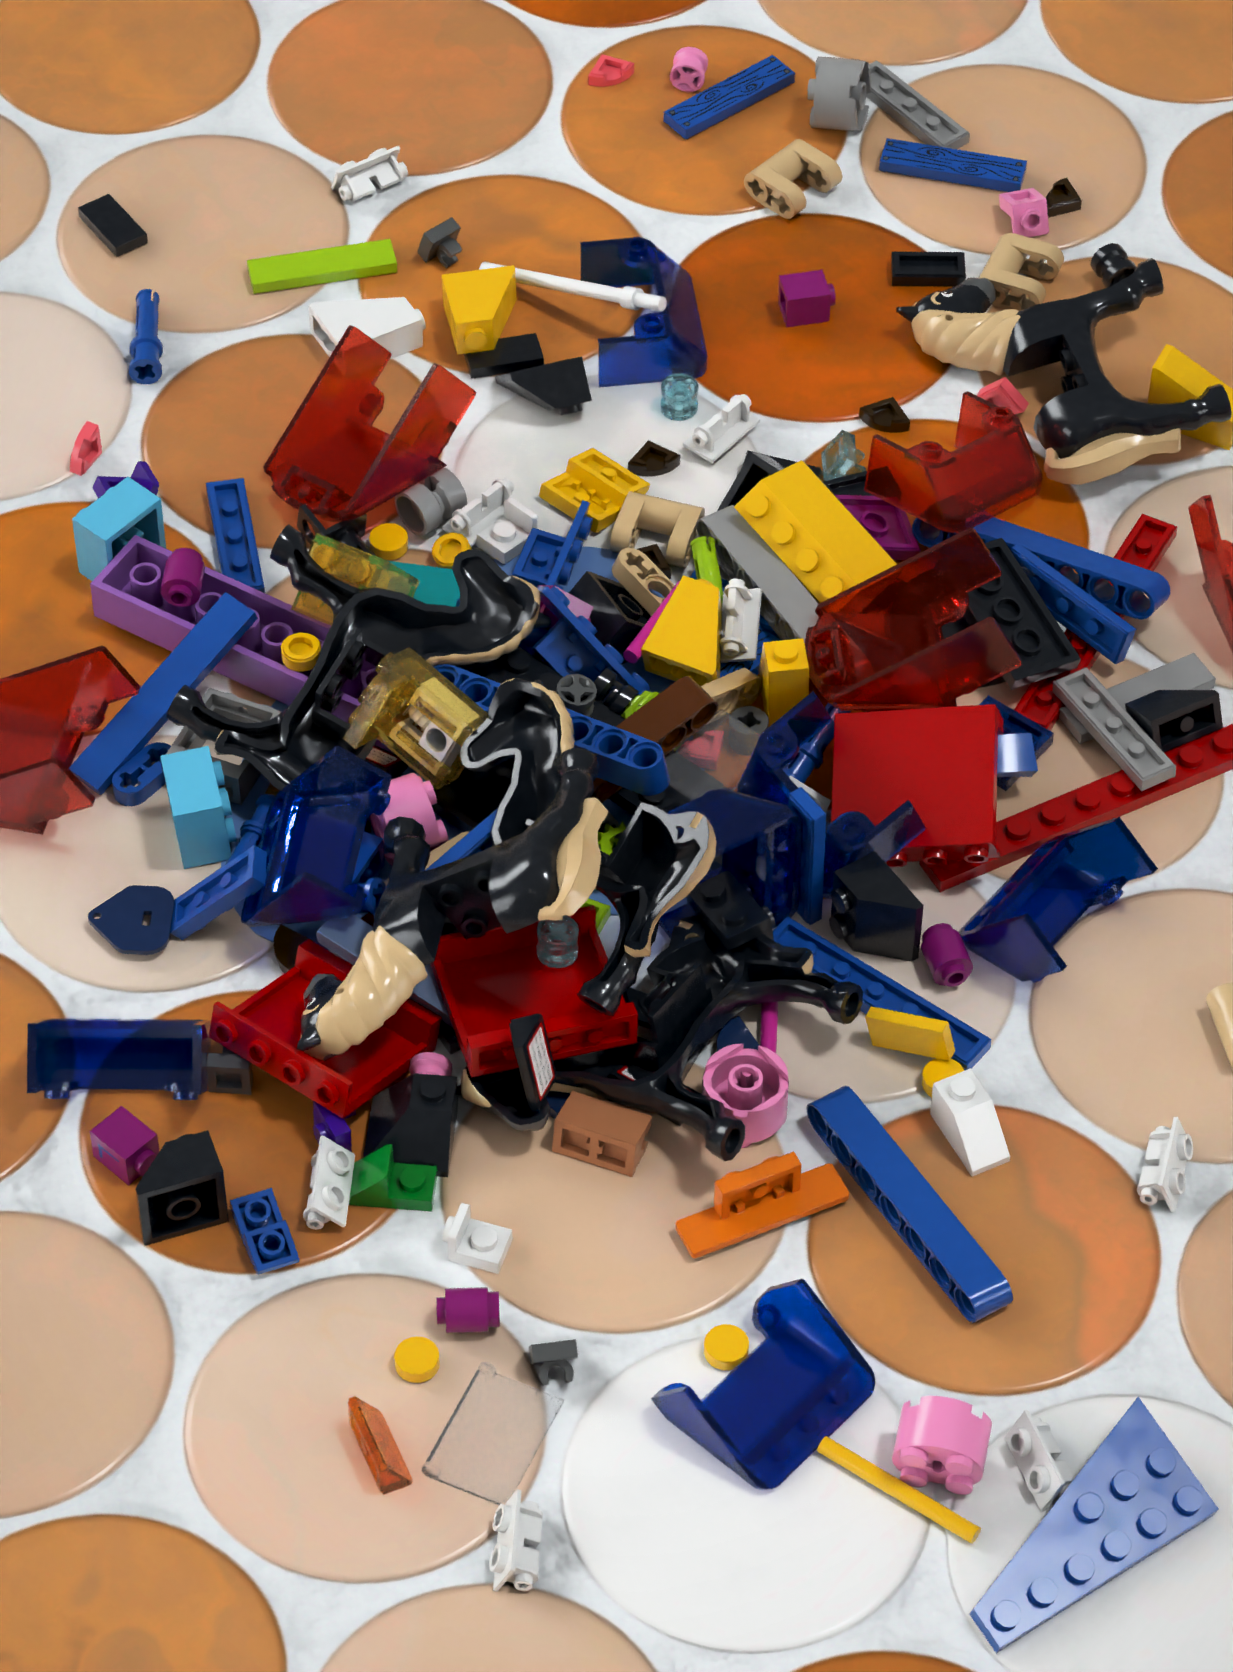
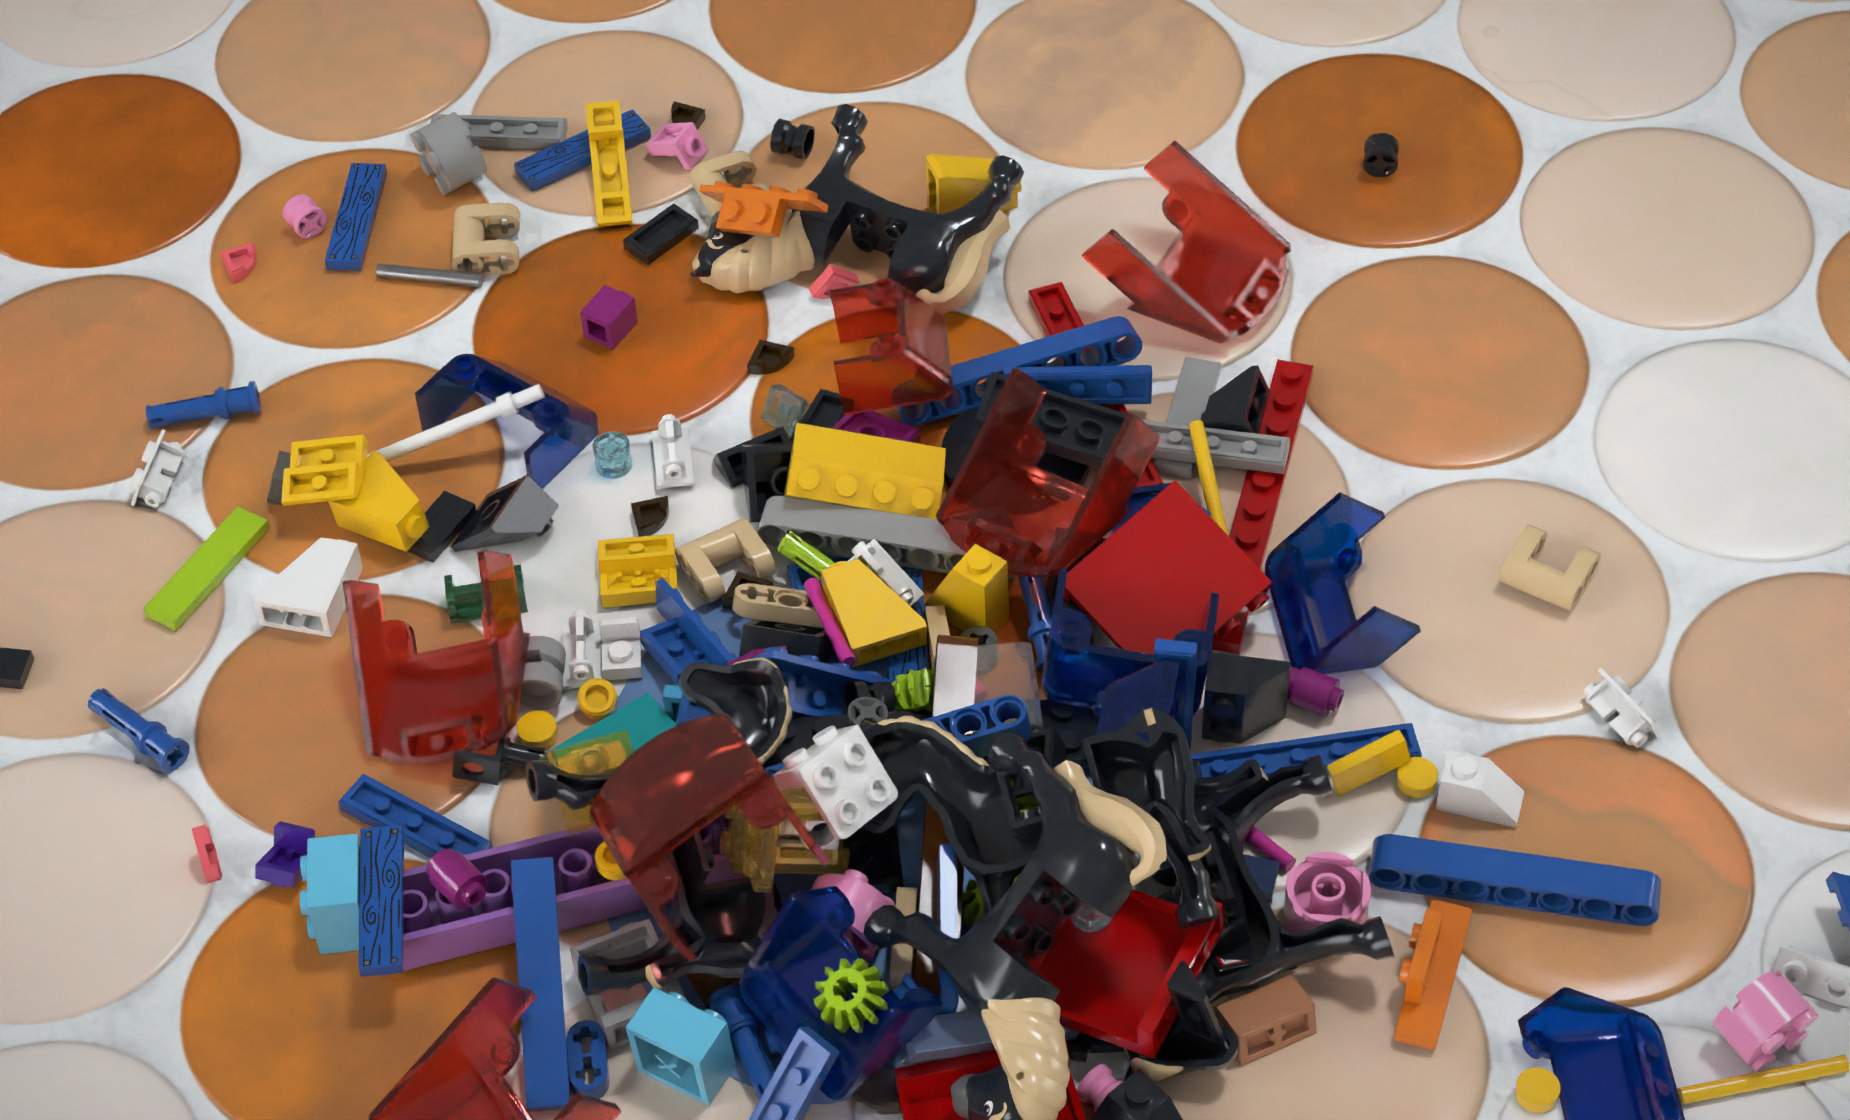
camera: 45 degrees left, 0 degrees up
(126, 554) = (381, 901): none -> blue tile
(315, 850) = (837, 989): none -> lime gear
(375, 614) = (673, 792): none -> clear red windscreen
(461, 701) = (840, 779): none -> white bracket
(462, 252) = (325, 470): none -> yellow slope
(468, 159) = (220, 403): none -> blue pin
(483, 435) = (467, 601): none -> clear green hinge
(725, 177) = (429, 275): none -> flat silver bar
(952, 190) = (608, 163): none -> yellow slope
(986, 287) = (756, 210): none -> orange bracket
(1064, 752) = (1207, 473): none -> yellow bar

